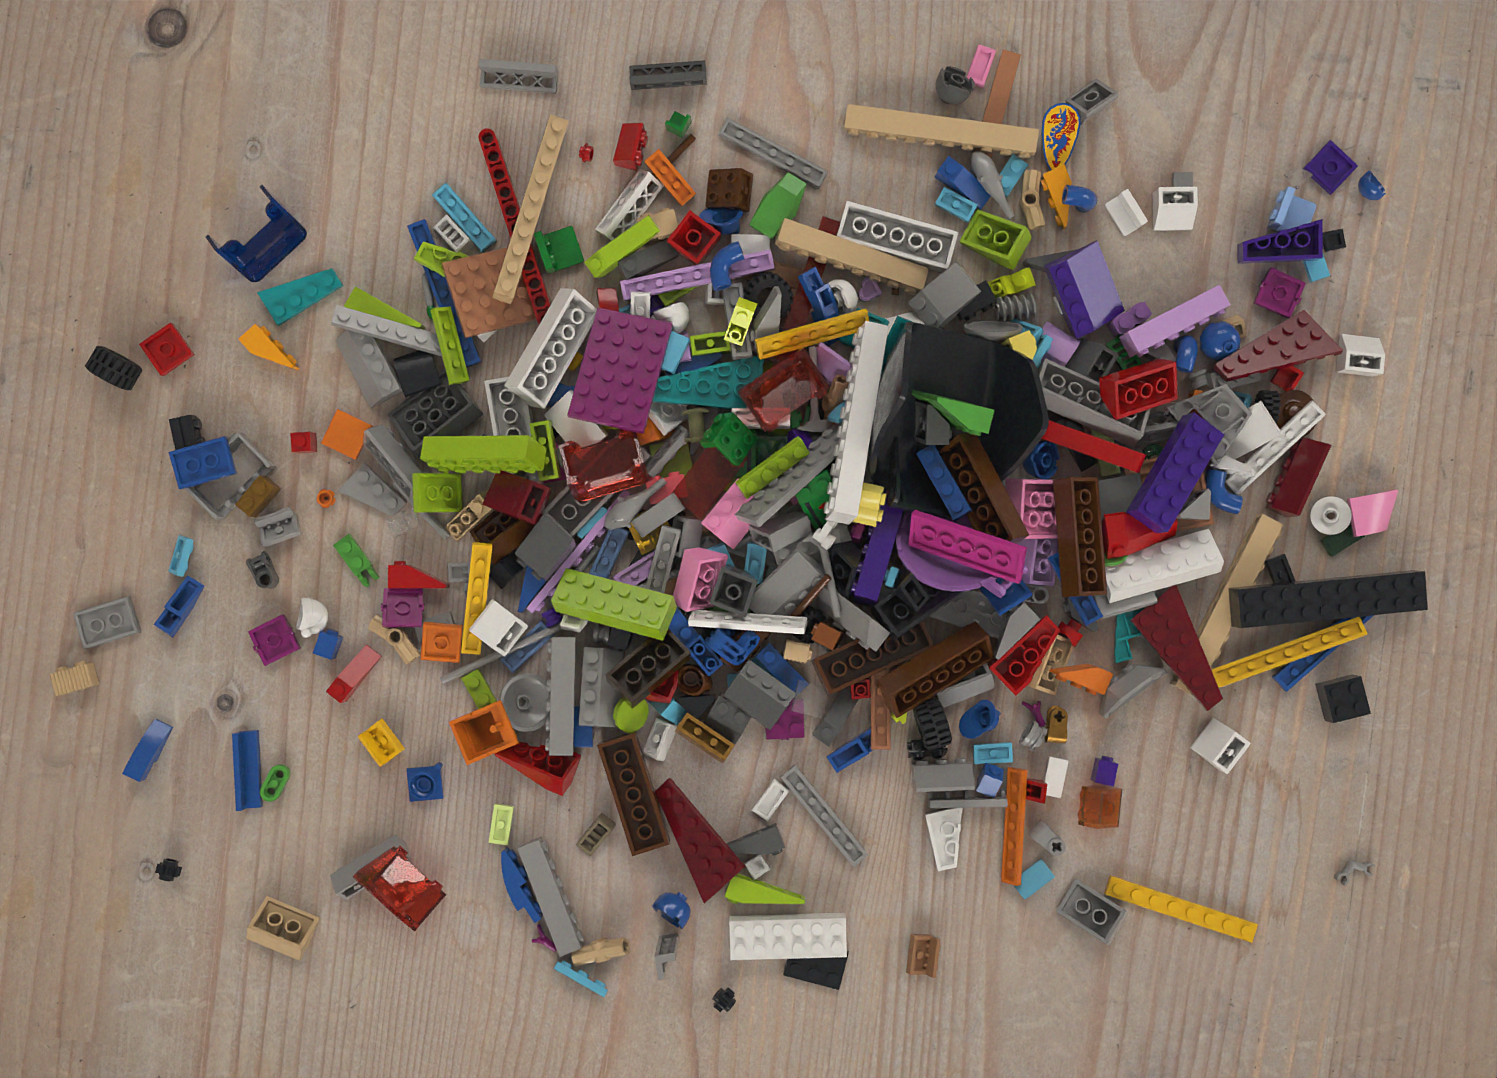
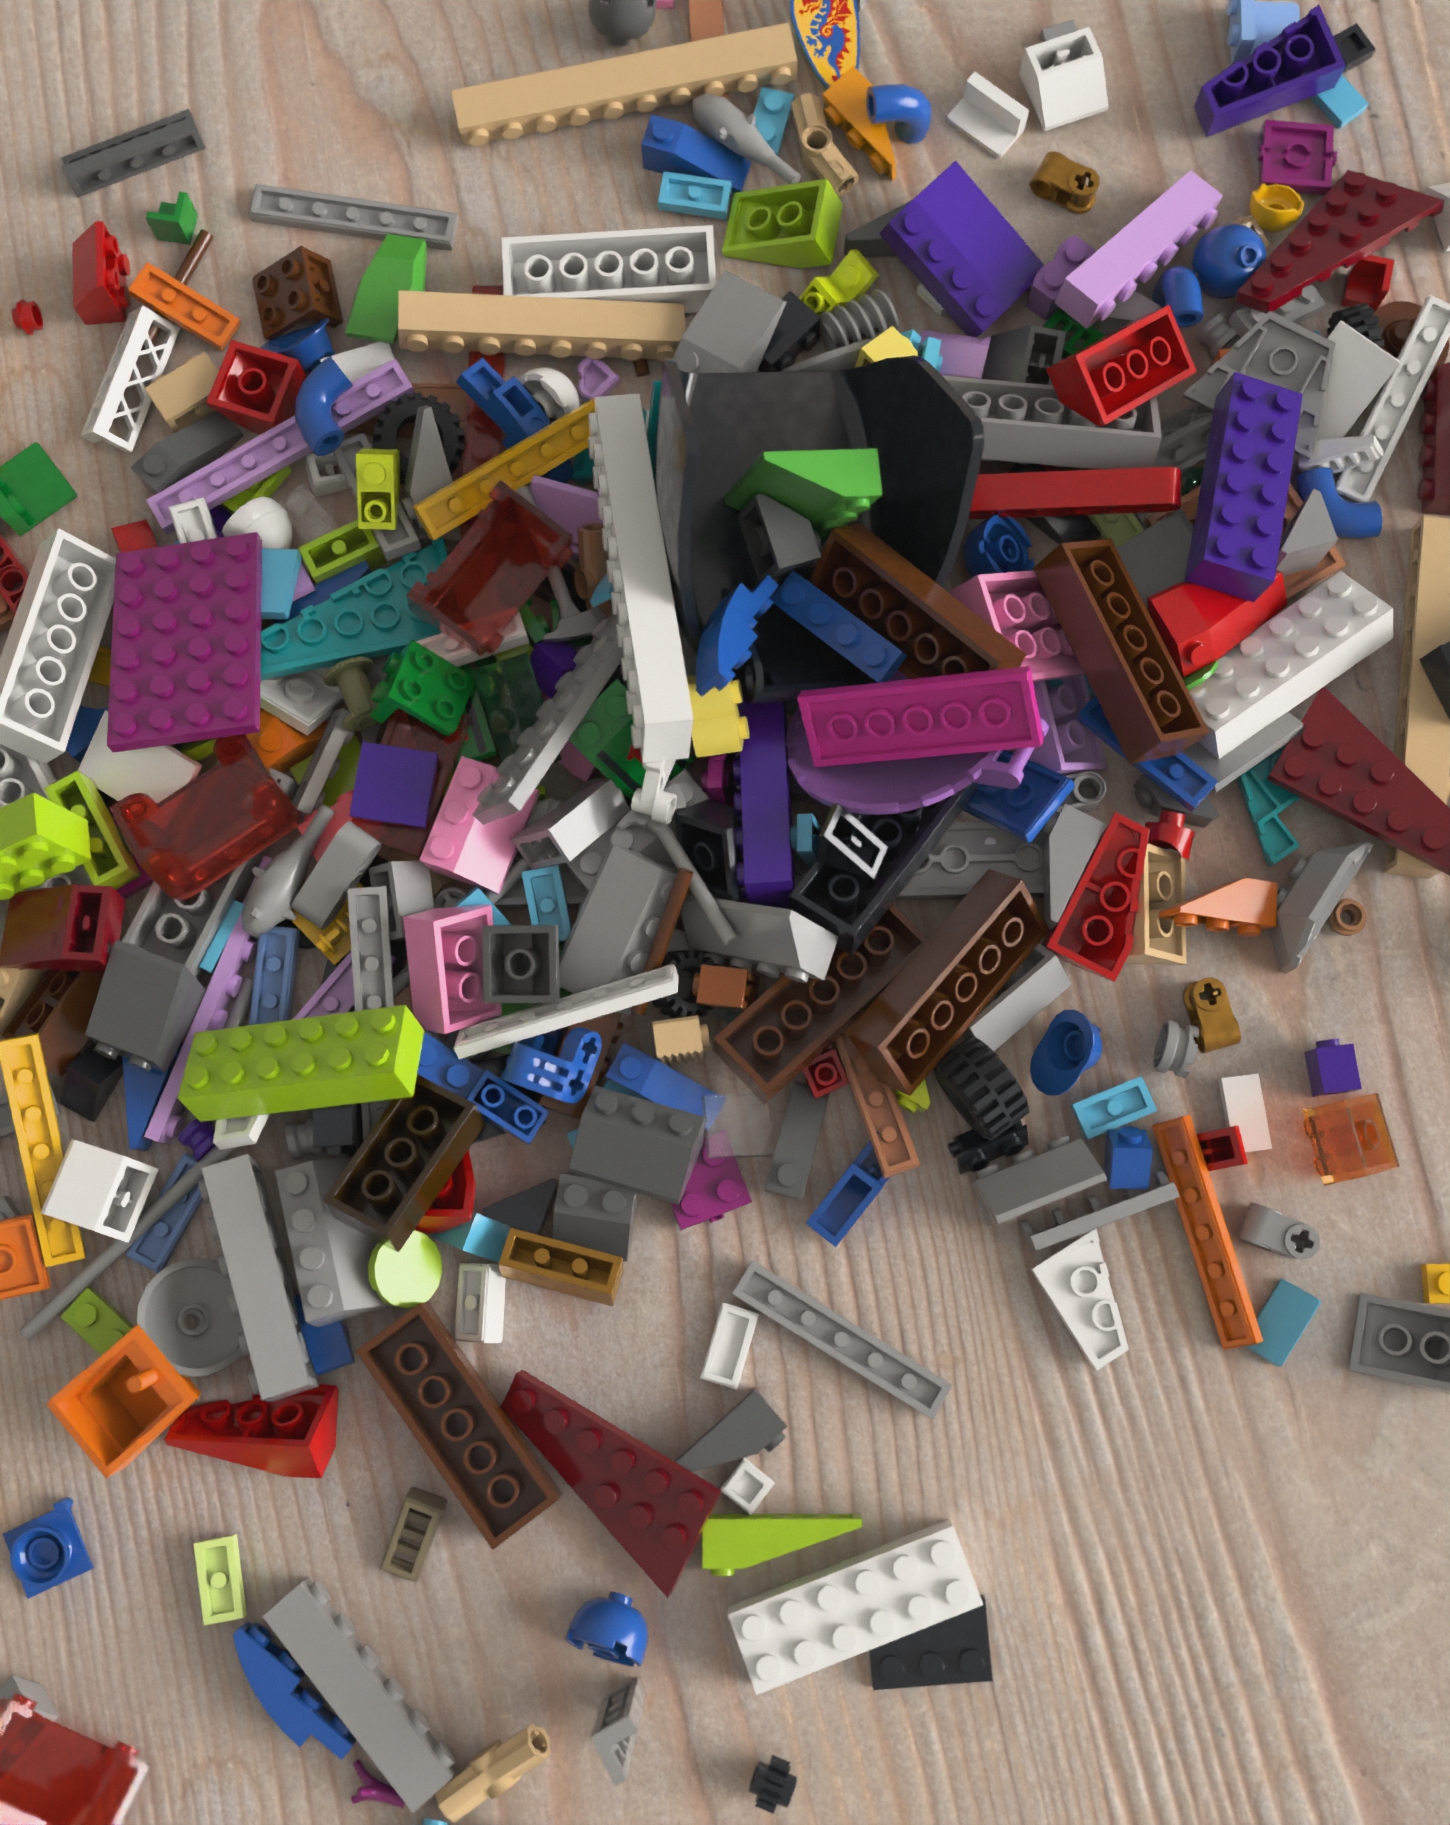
camera: 20 degrees left, 10 degrees down
(624, 245) = (107, 473): lime slope -> none
(689, 678) = (497, 1166): reddish brown hair -> none
(700, 481) = (394, 785): none -> dark purple tile
(772, 467) = (515, 711): lime plate -> none
(889, 470) = (729, 634): none -> blue slope
(923, 955) = (1130, 1548): medium nougat bracket -> none
(1035, 710) = (1163, 1005): magenta bar -> none
(1147, 701) = (1357, 915): none -> medium nougat plate
(1150, 264) = (1064, 180): none -> pearl gold piece
(1257, 318) = (1275, 207): none -> yellow hair

